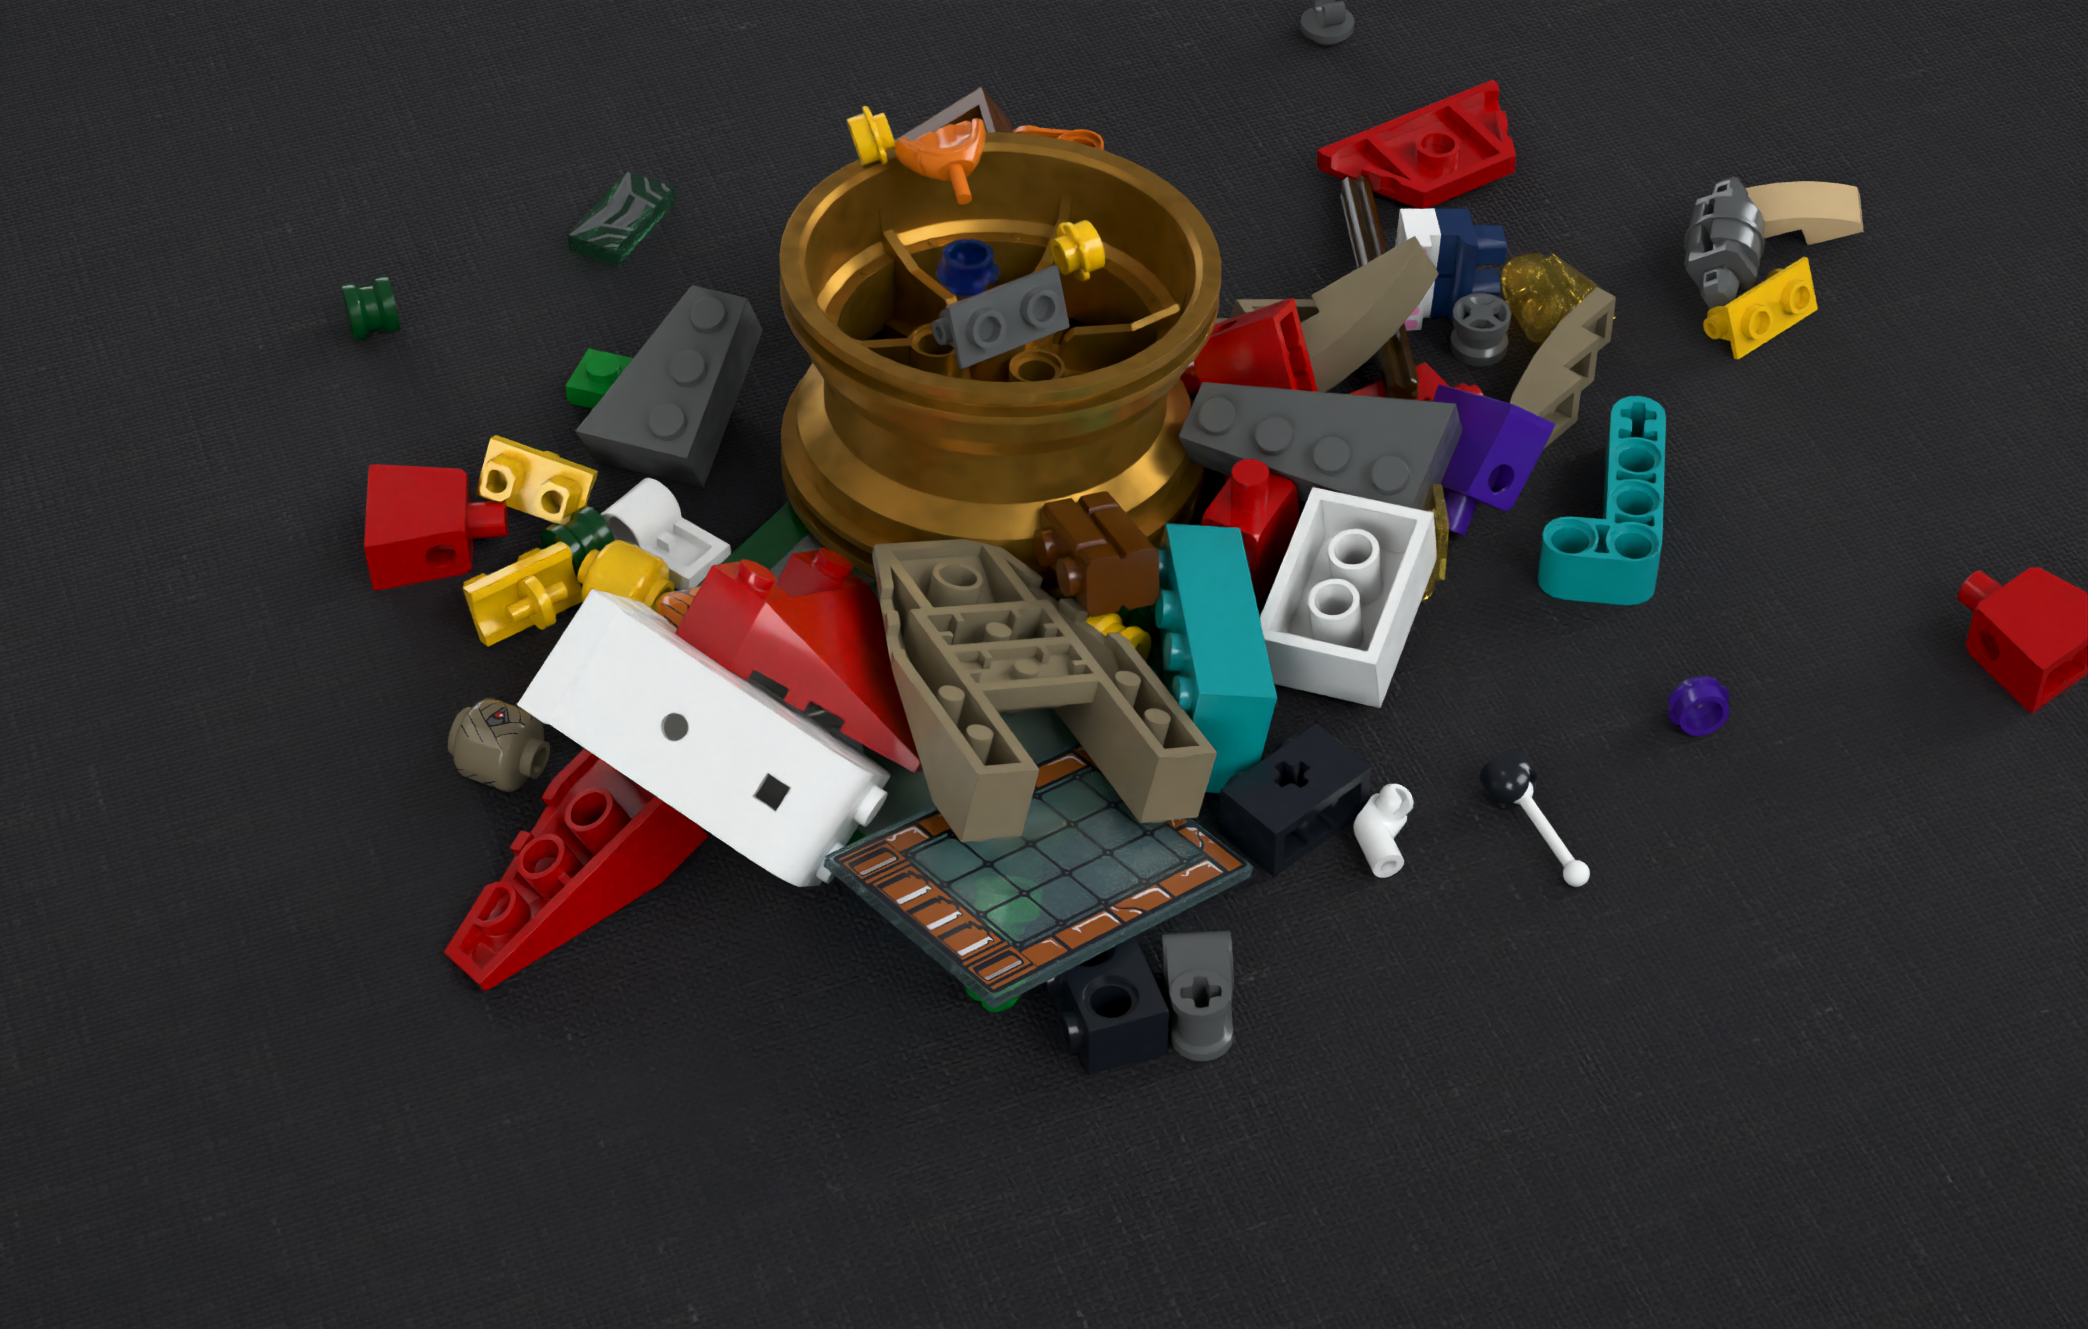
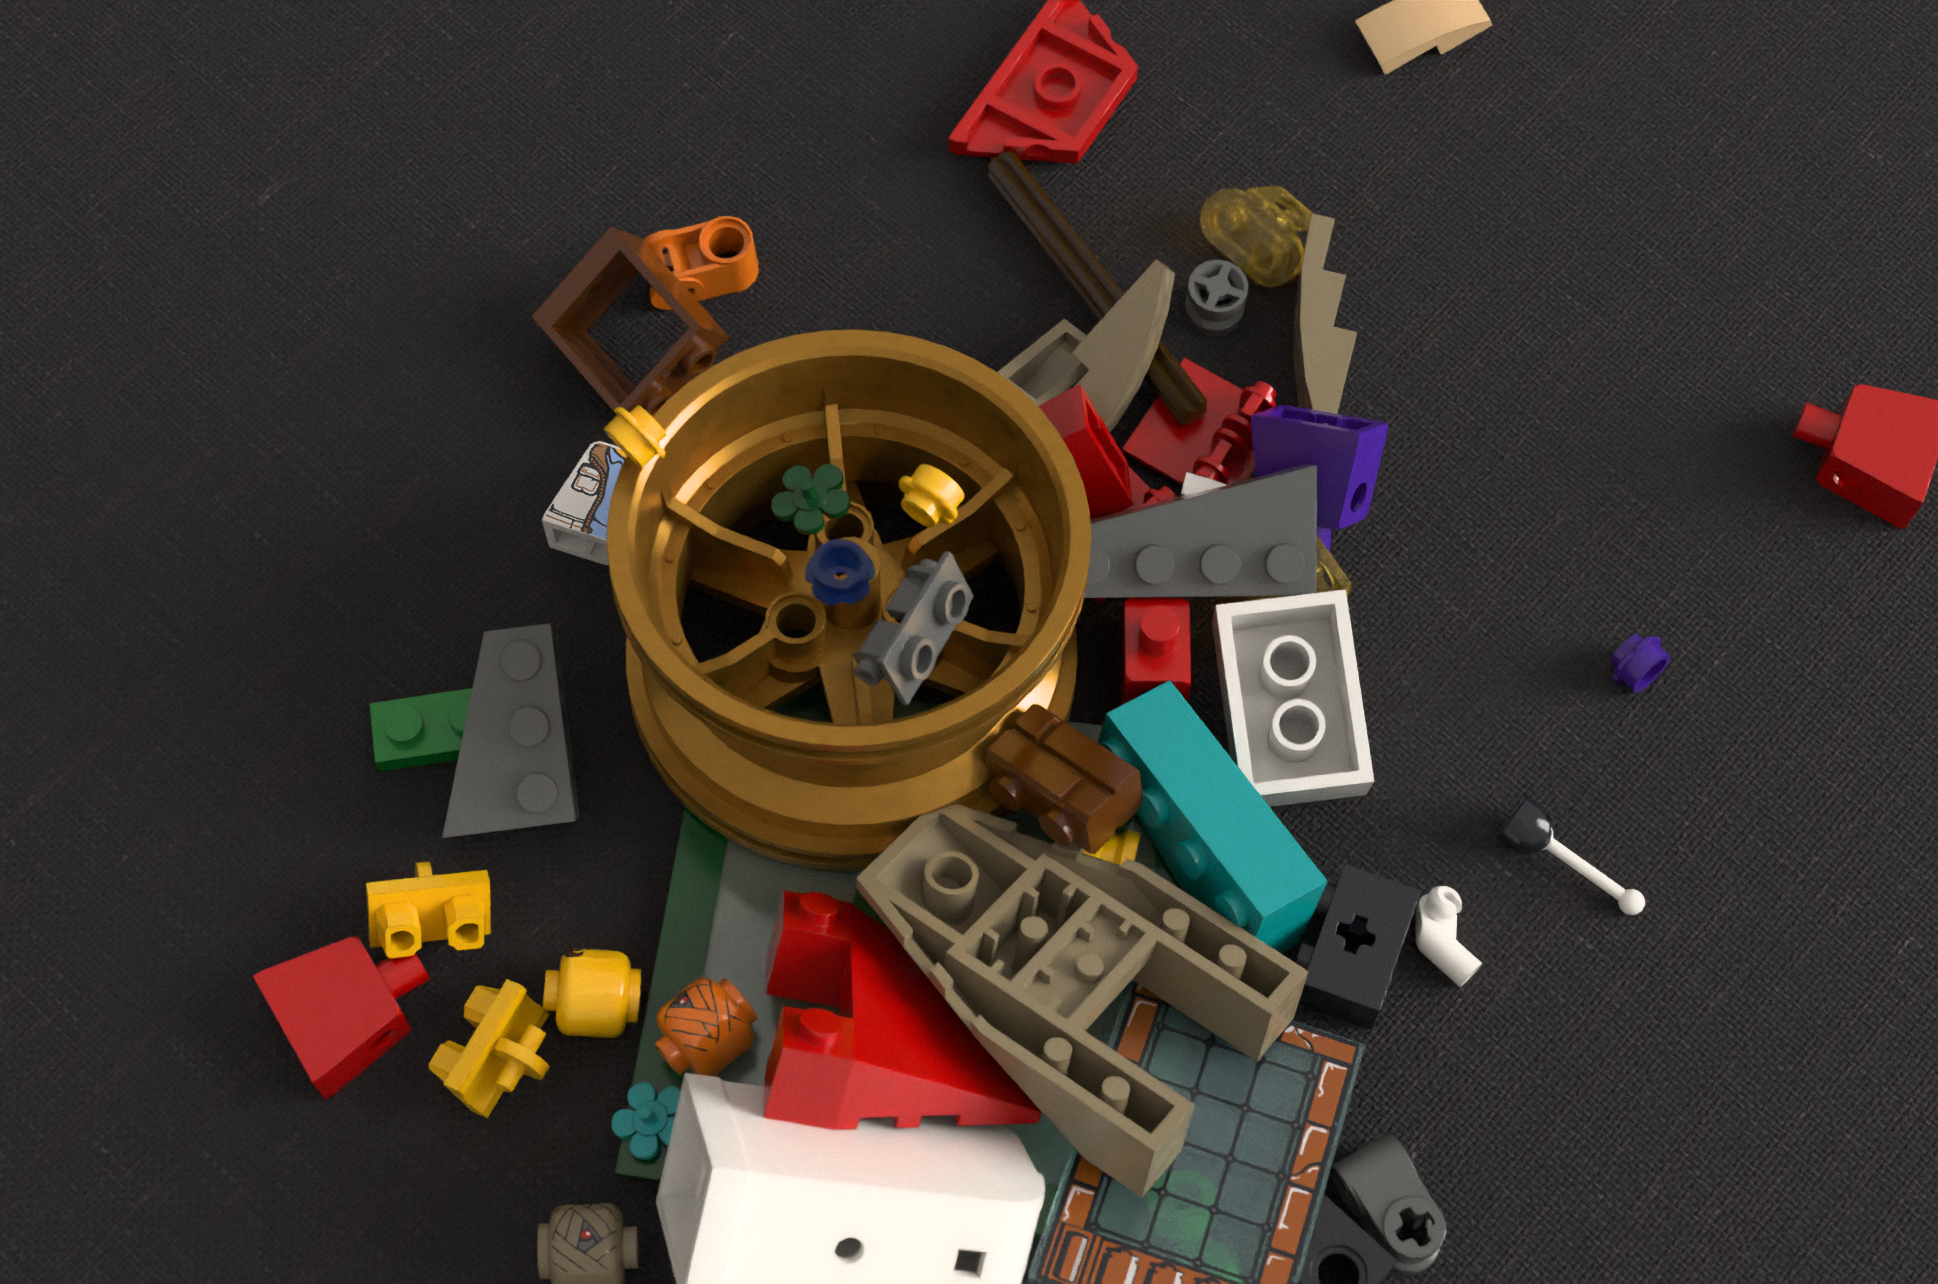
camera: 30 degrees left, 20 degrees up
(370, 308) = (112, 754): dark green wheel -> none
(582, 534) = (513, 956): dark green wheel -> none
(621, 218) = (296, 513): clear green tile -> none
(653, 522) = (579, 912): white plate -> none
(946, 154) = (722, 420): orange piece -> none
(984, 223) = (811, 497): none -> dark green plant
(1455, 250) = (1159, 230): dark blue hips -> none
(1620, 554) = (1449, 451): teal beam -> none
(1724, 242) = (1387, 100): dark grey piece -> none
(1764, 309) = (1460, 139): yellow hinge -> none

